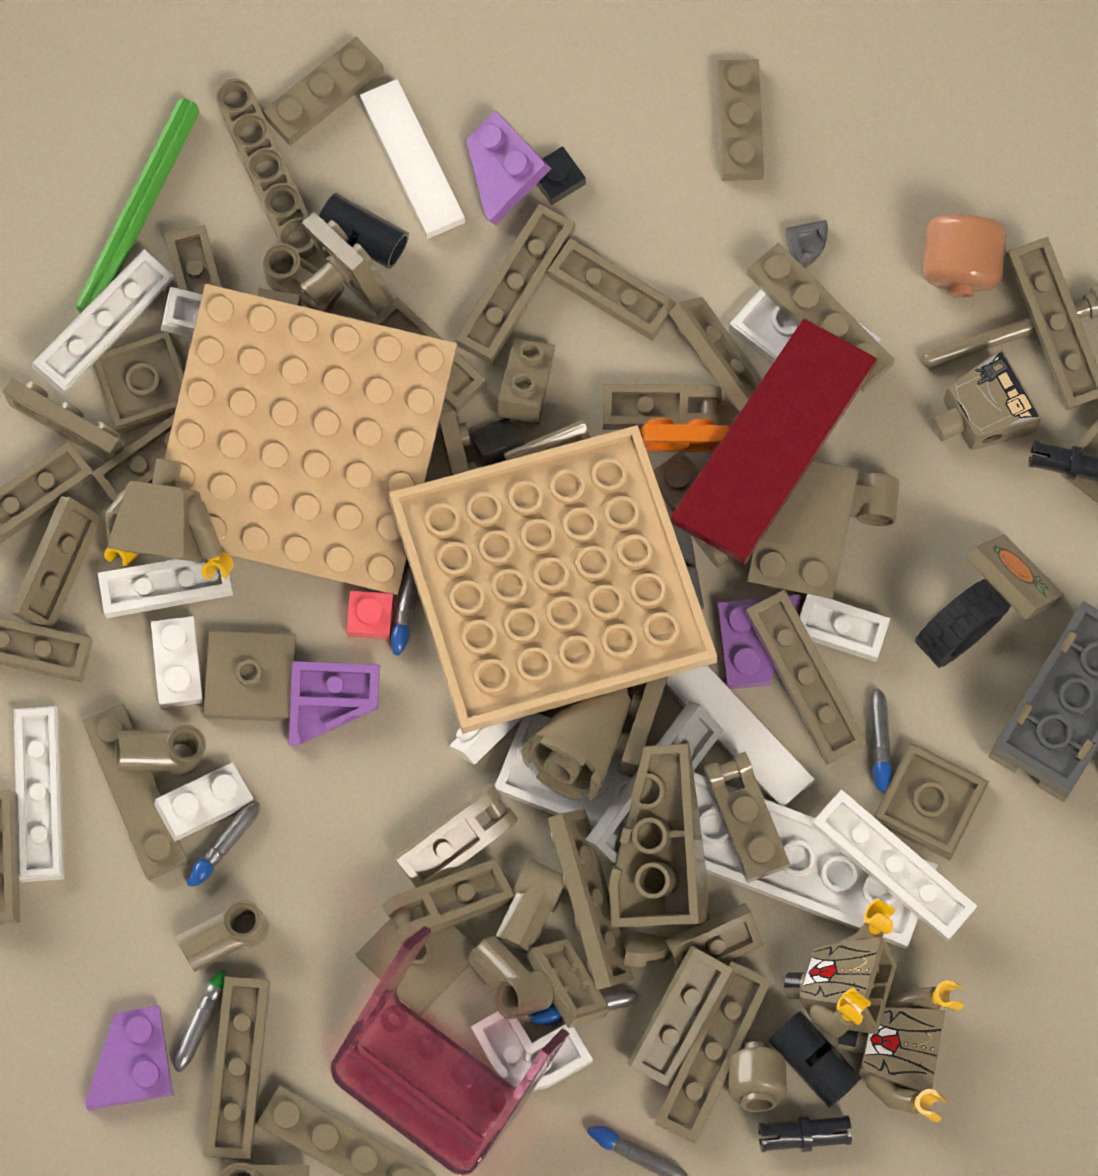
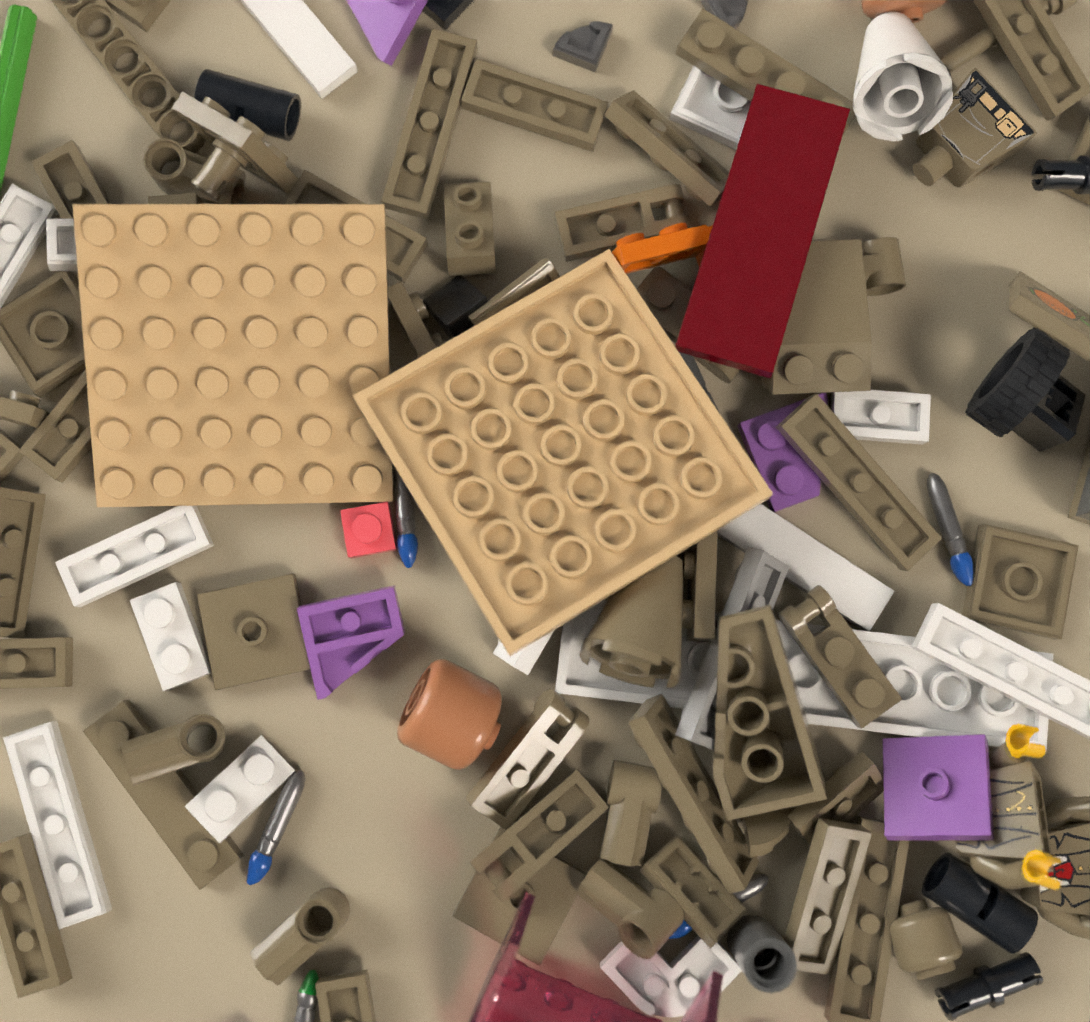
camera: 20 degrees left, 10 degrees up
(164, 523) = (108, 493): dark tan torso -> none
(400, 782) = (451, 715): none -> nougat head
(616, 1025) = (774, 967): none -> dark grey pin
(670, 247) = (584, 45): none -> flat silver tile
(799, 946) = (937, 788): none -> medium lavender plate
(928, 343) = (899, 80): none -> white cone
(993, 657) = (1054, 417): none -> black slope

